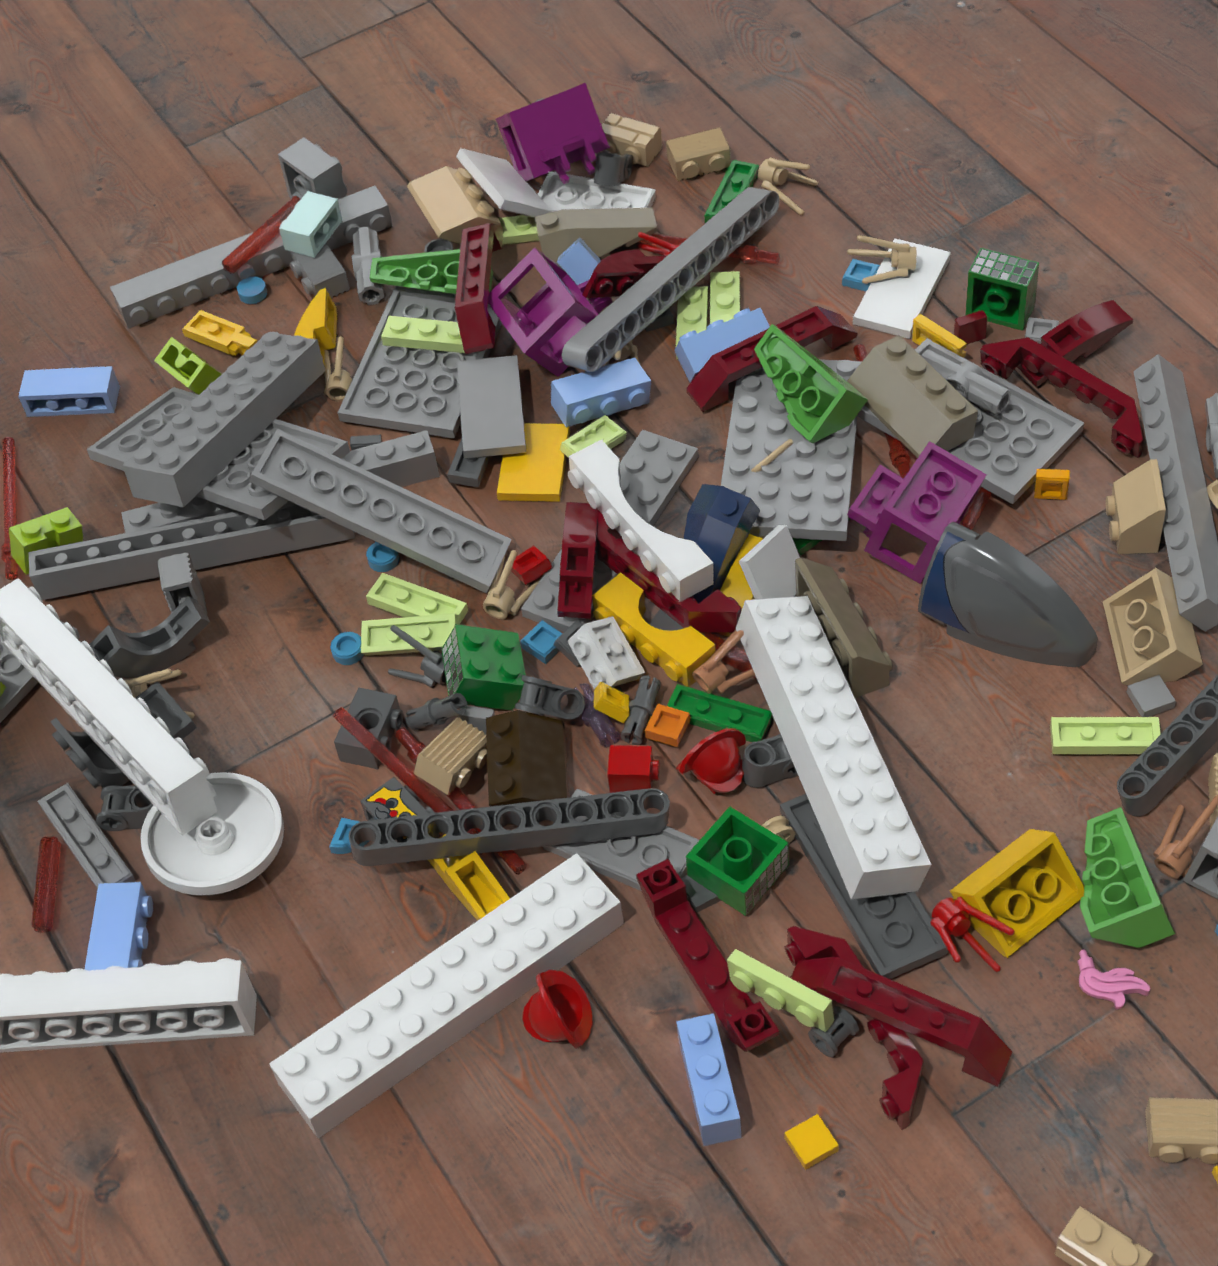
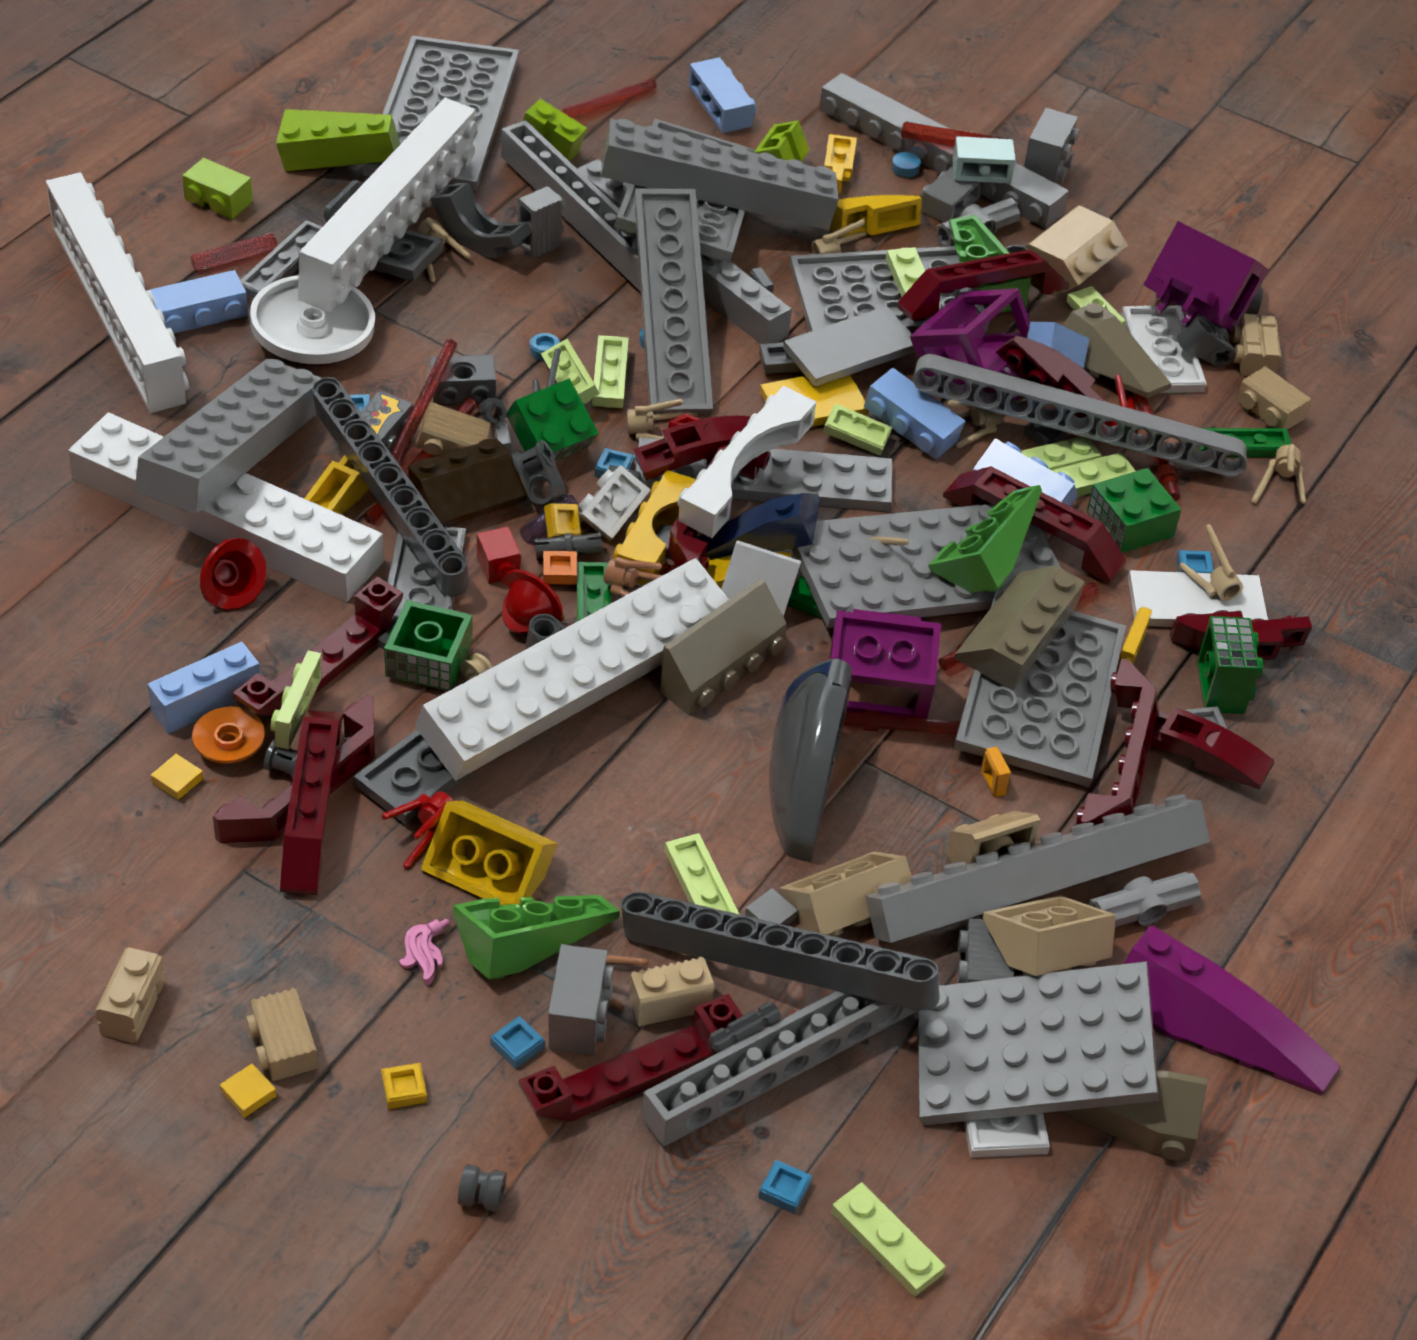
camera: 55 degrees right, 5 degrees down
(386, 948) = (227, 436): none -> light grey brick
(503, 183) = (1121, 271): white tile -> none
(781, 1059) = (228, 735): none -> orange dish
(788, 285) = (1134, 509): none -> green brick
(954, 278) = (1272, 633): none -> dark red slope
(970, 383) = (1072, 659): light grey piece -> none
(971, 327) = (1168, 661): dark red tile -> none

